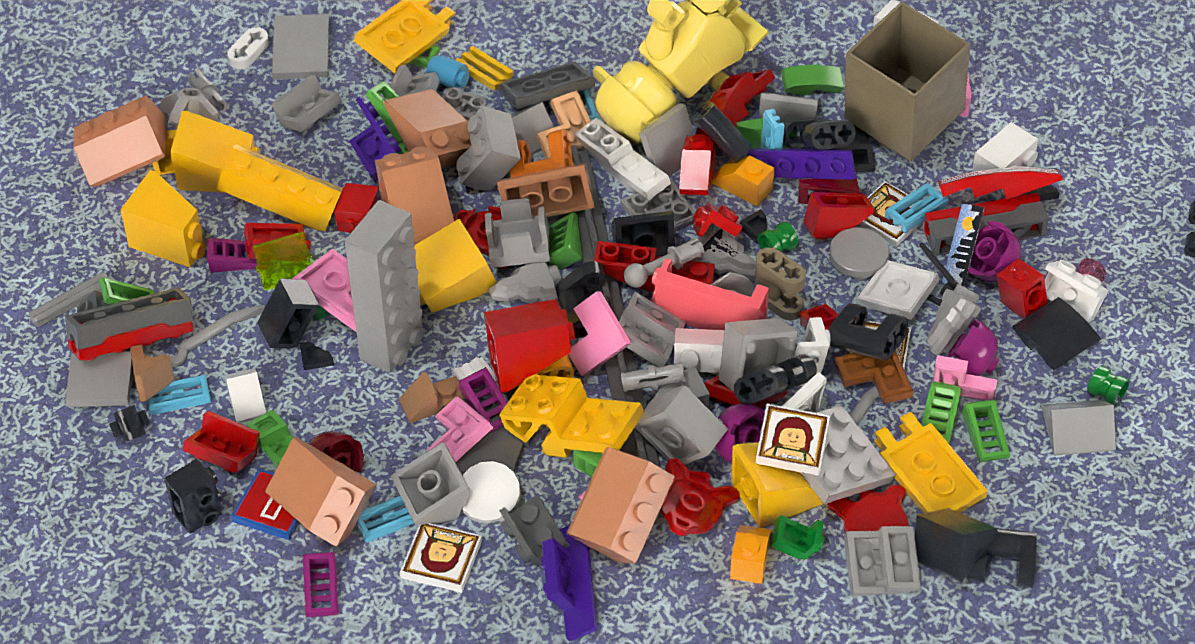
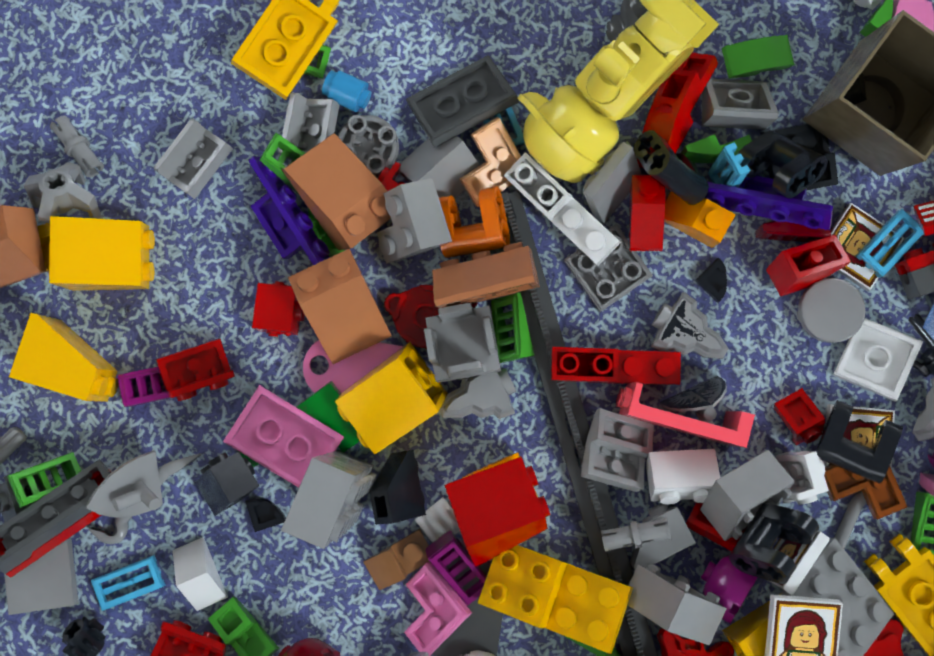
camera: 10 degrees left, 35 degrees up
(150, 372) = (86, 578): medium nougat slope -> none
(200, 311) = (129, 489): none -> light grey shield
(245, 46) = (117, 74): white beam -> none
(279, 188) = (185, 292): yellow slope -> none
(281, 259) = (207, 400): clear neon green piece -> none
(300, 46) = (171, 61): light grey tile -> none
(441, 342) = (397, 490): none -> black slope
(488, 66) = (363, 59): yellow tile -> none
(576, 288) = (535, 426): black connector -> none
(604, 335) = (572, 479): bright pink tile -> none
(637, 274) = (603, 396): light grey pin -> none
(646, 230) = (599, 320): black slope -> none
(721, 217) = (677, 294): red bracket -> none
(770, 274) = (752, 371): dark tan connector -> none
(781, 238) = (743, 304): green wheel -> none

